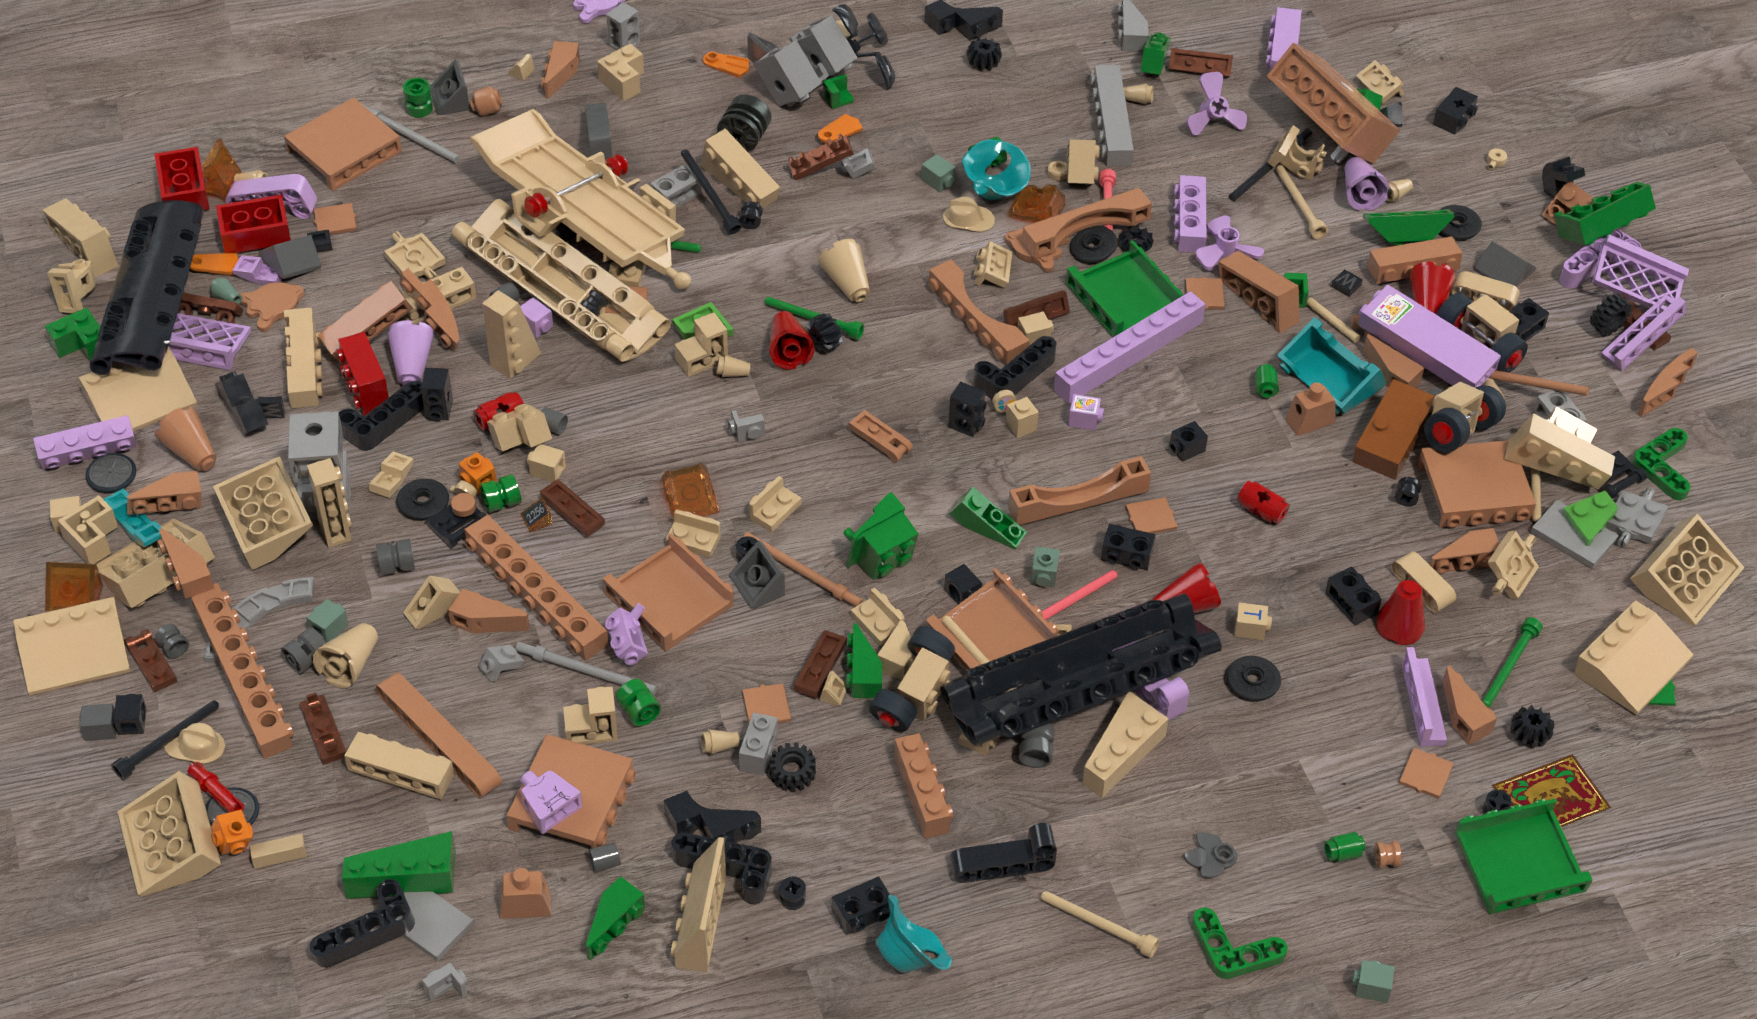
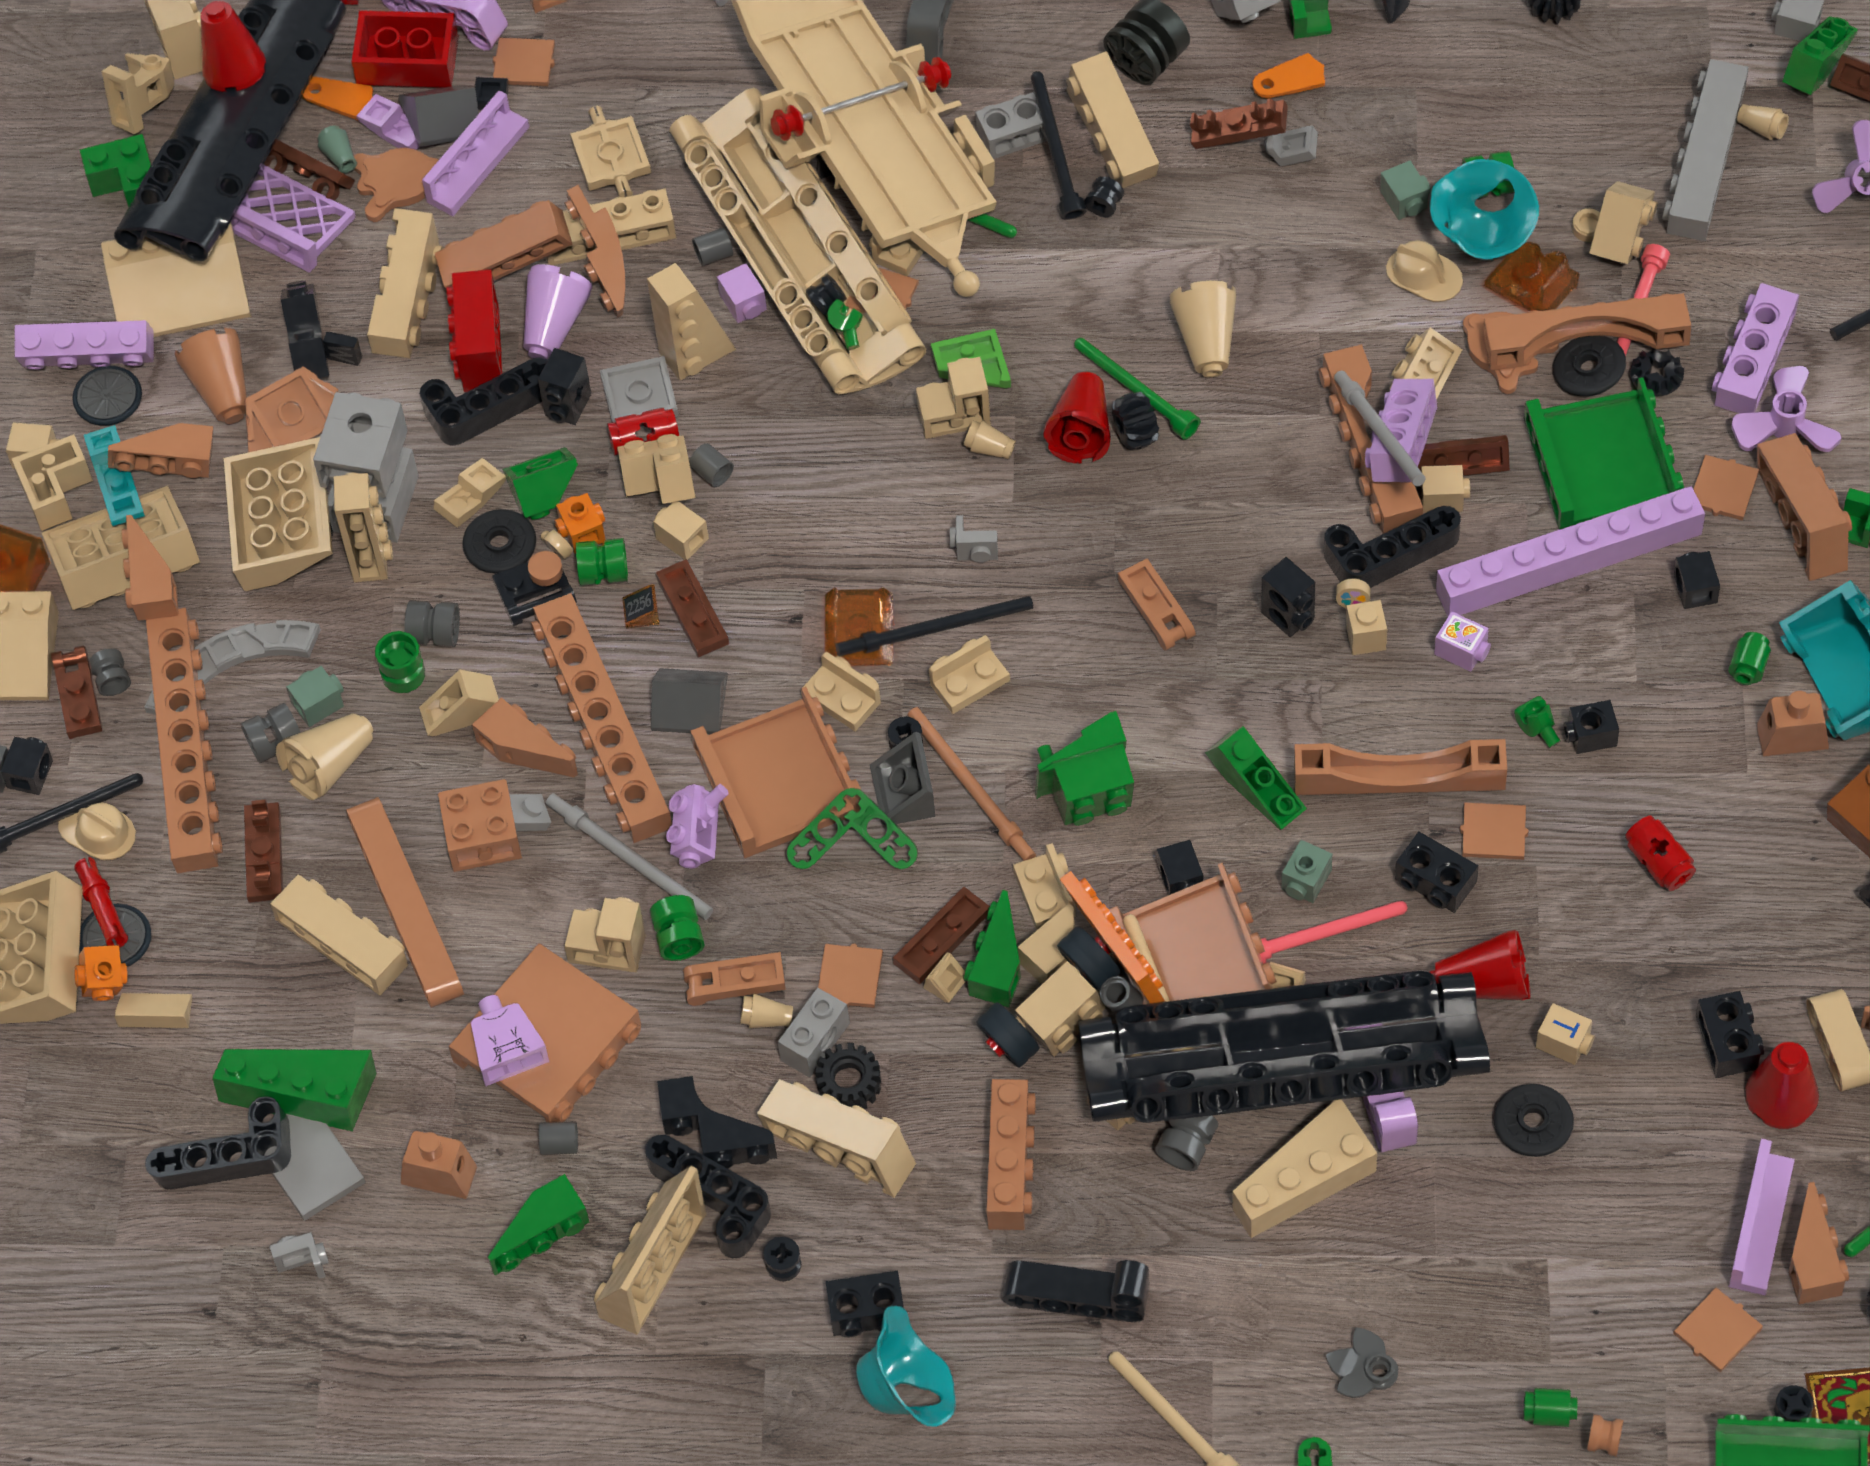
camera: 25 degrees right, 10 degrees up
(135, 237) = (228, 49): none -> red cone
(250, 448) = (288, 410): none -> nougat wing
(322, 276) = (474, 155): none -> lavender fence
(381, 585) = (400, 662): none -> green wheel
(440, 456) = (540, 481): none -> green slope
(476, 672) = (479, 825): none -> nougat bracket
(483, 387) = (638, 388): none -> light grey tile
(590, 564) = (687, 700): none -> dark grey slope
(613, 318) = (845, 324): none -> green piece
(689, 725) = (734, 978): none -> nougat plate
(704, 496) = (872, 641): none -> black bar
(740, 607) = (859, 821): none -> green beam
(802, 802) = (839, 1134): none -> tan wedge
(957, 659) = (1114, 988): none -> dark grey beam
(962, 284) = (1355, 396): none -> light grey bar
(967, 643) = (1114, 937): none -> orange plate
(998, 299) = (1409, 416): none -> lavender brick
(1149, 445) = (1535, 719): none -> green piece
(1214, 345) = (1696, 579): none -> black brick

